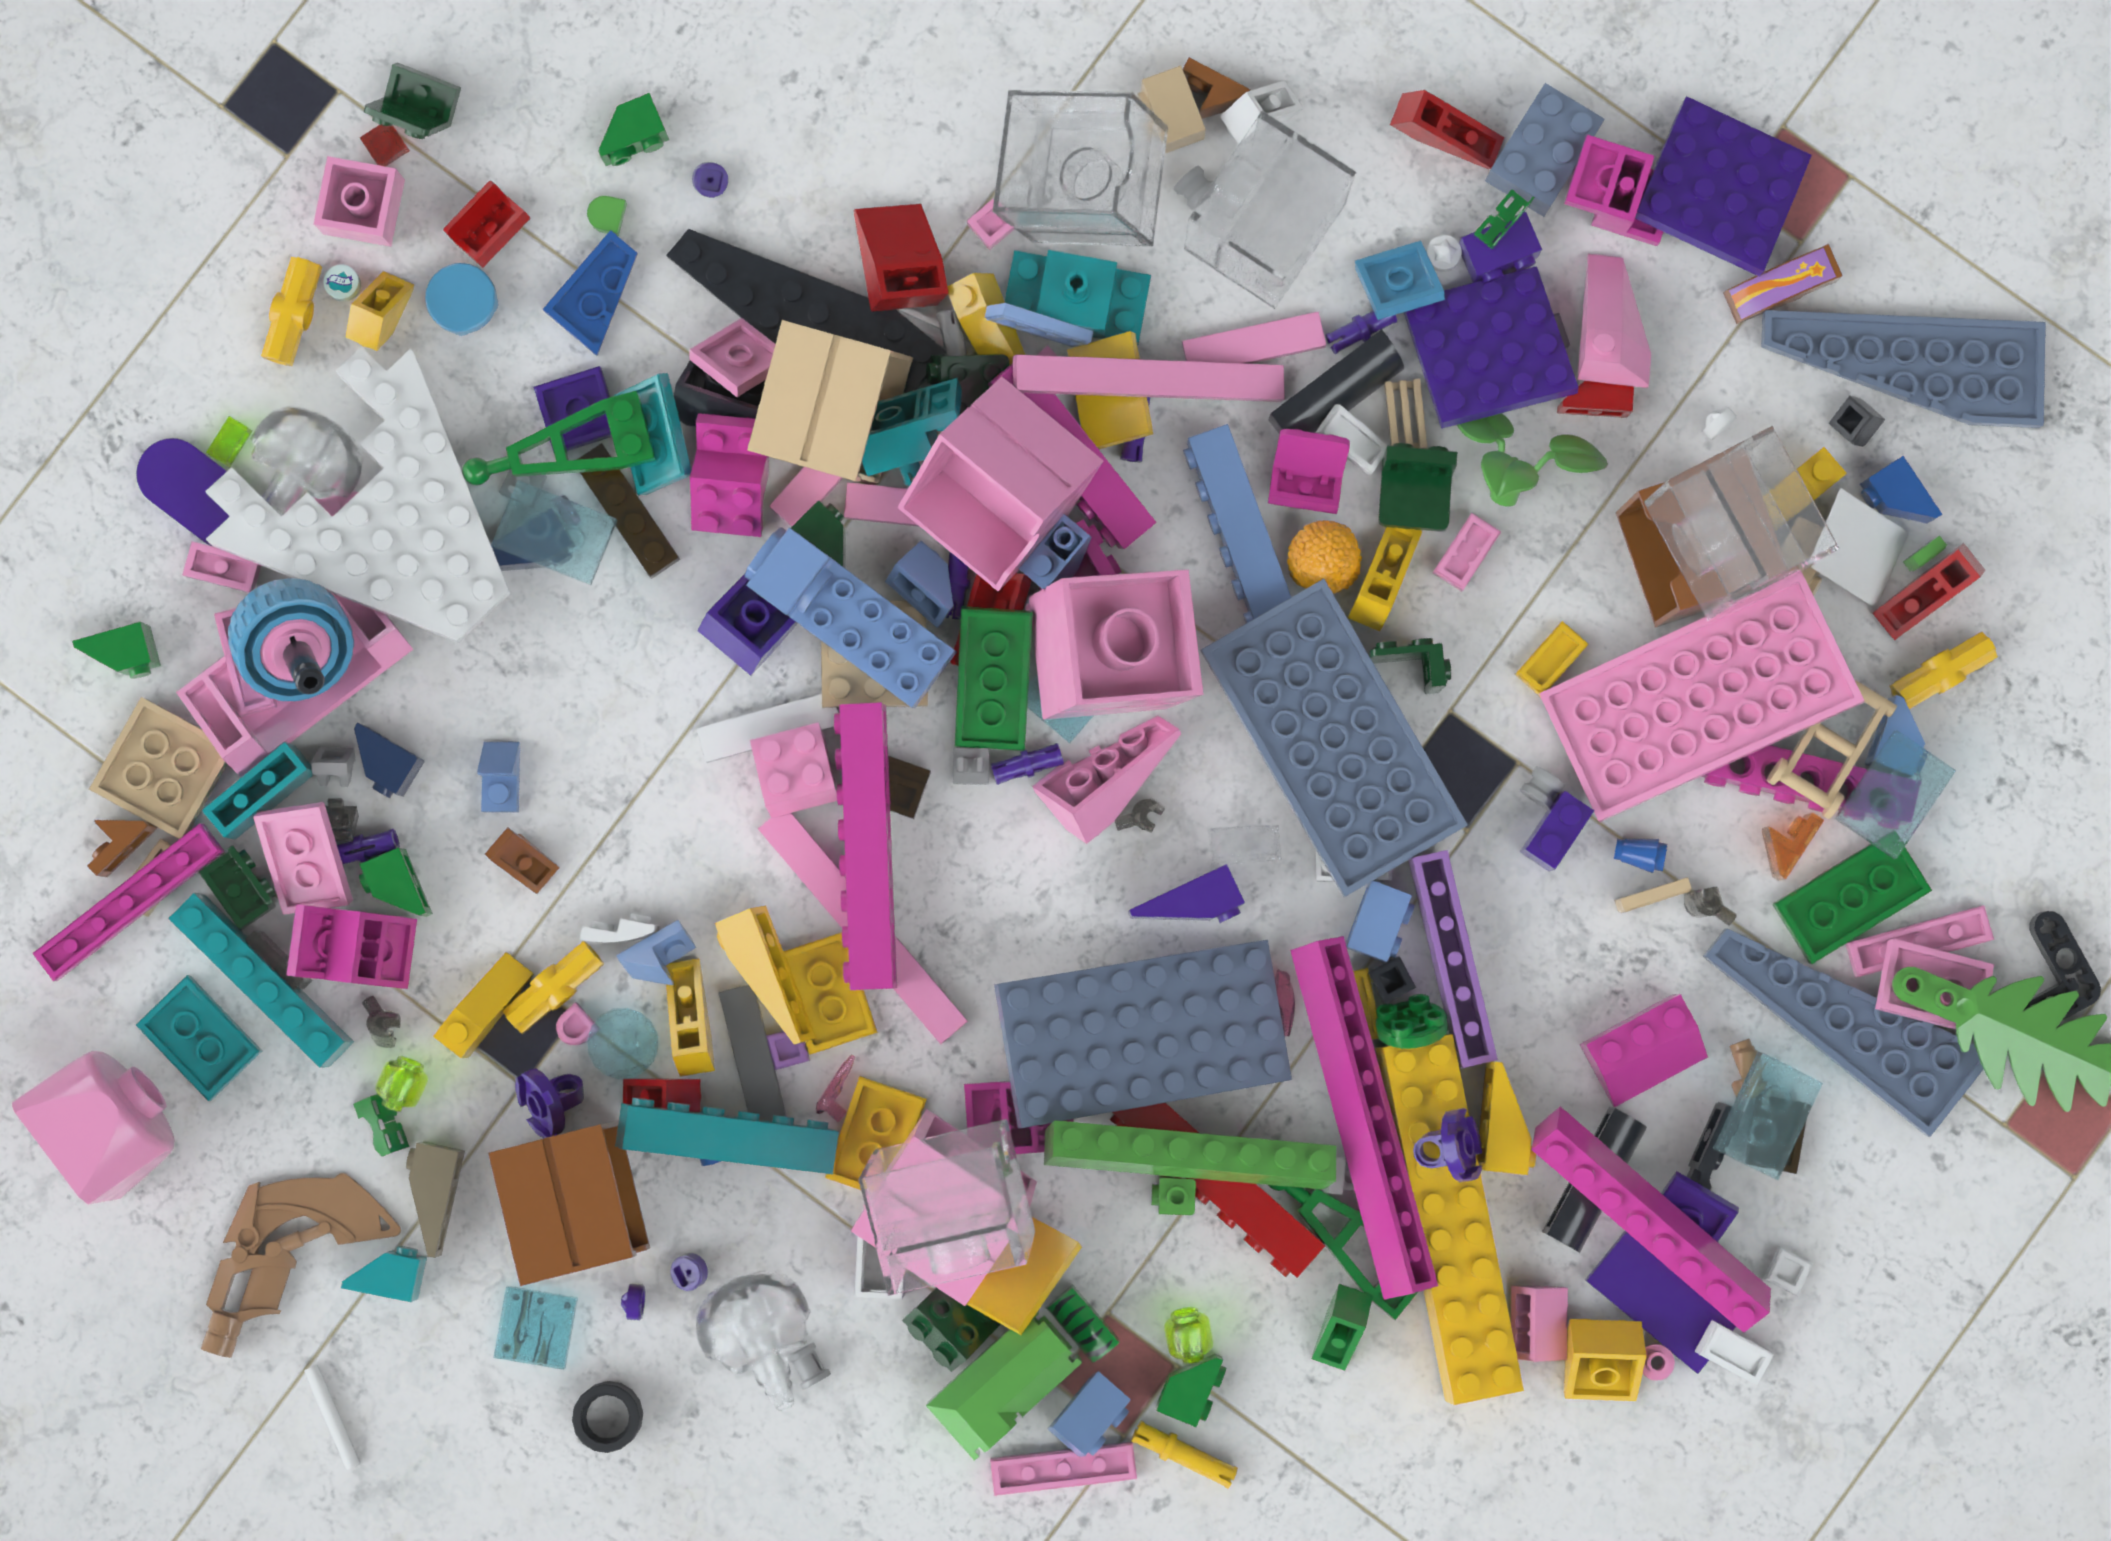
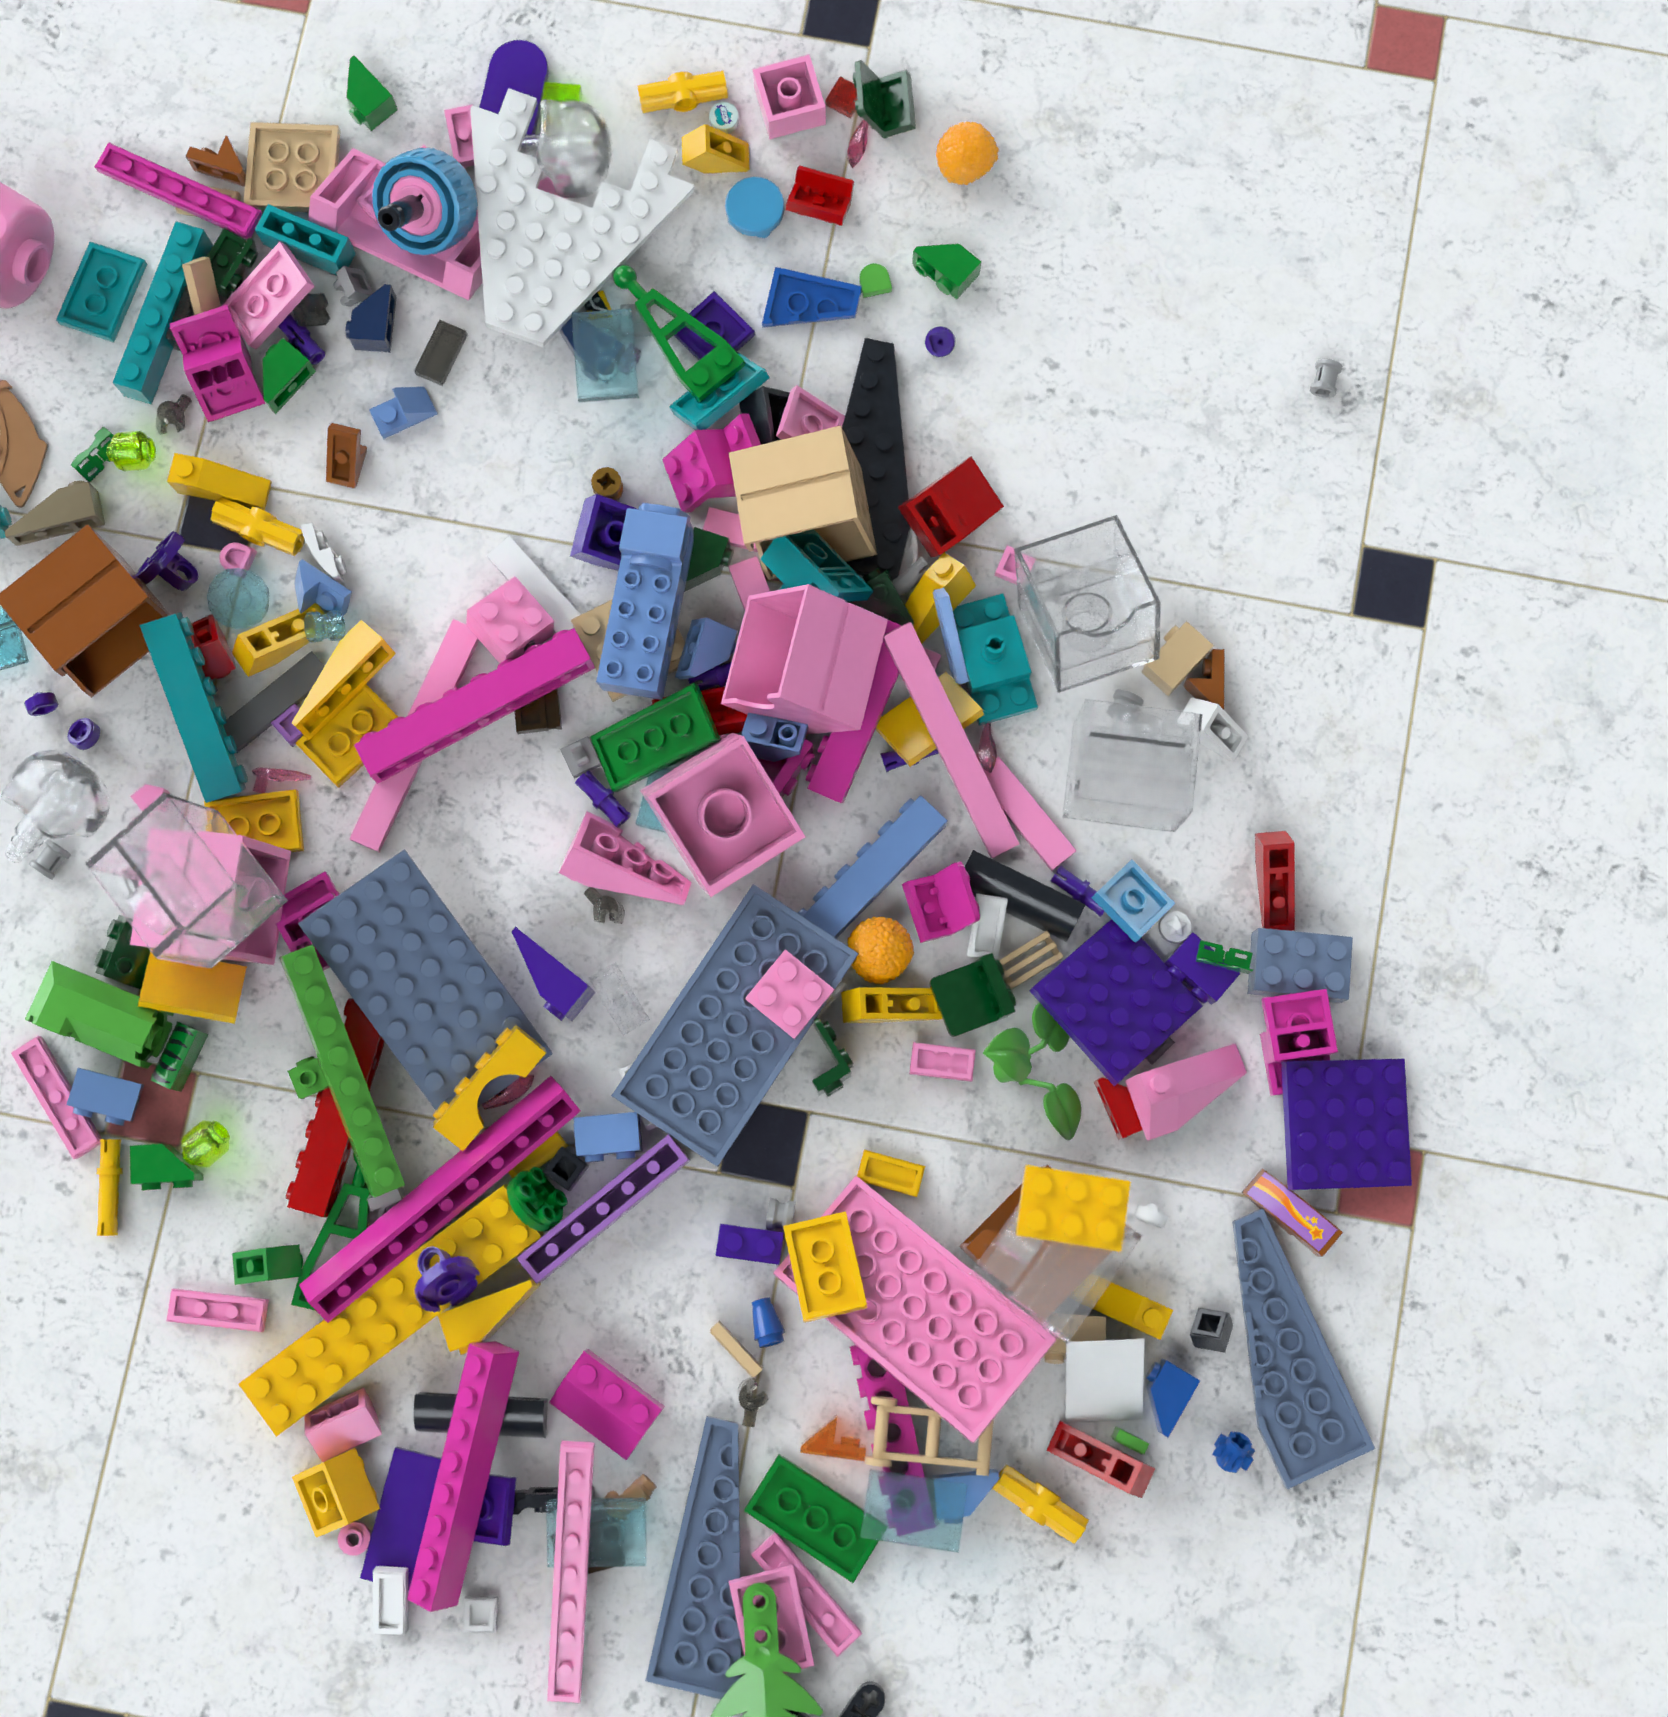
camera: 60 degrees right, 5 degrees down
(259, 924) = (201, 285): none -> tan tile
(444, 157) = (857, 144): none -> clear pink bar
(454, 706) = (441, 352): none -> clear smoke tile
(490, 516) = (597, 302): none -> sticker
(518, 48) = (966, 153): none -> light orange hair
(633, 518) = (650, 409): dark brown plate -> none
(697, 604) = (609, 490): none -> pearl gold wheel
(701, 968) = (324, 626): none -> clear light blue wheel
(793, 1232) = (147, 795): none -> bright pink piece
(1169, 348) = (987, 749): none -> clear pink bar
(1255, 977) = (514, 1055): none -> yellow arch
(1332, 667) = (789, 994): none -> bright pink plate
(1362, 1399) = (217, 1310): none -> bright pink tile
(1620, 764) = (825, 1267): none -> yellow plate
(1715, 478) = (1073, 1208): none -> yellow plate
(1793, 1157) = (570, 1571): none -> bright pink tile
(1984, 459) = (1233, 1452): none -> blue gear

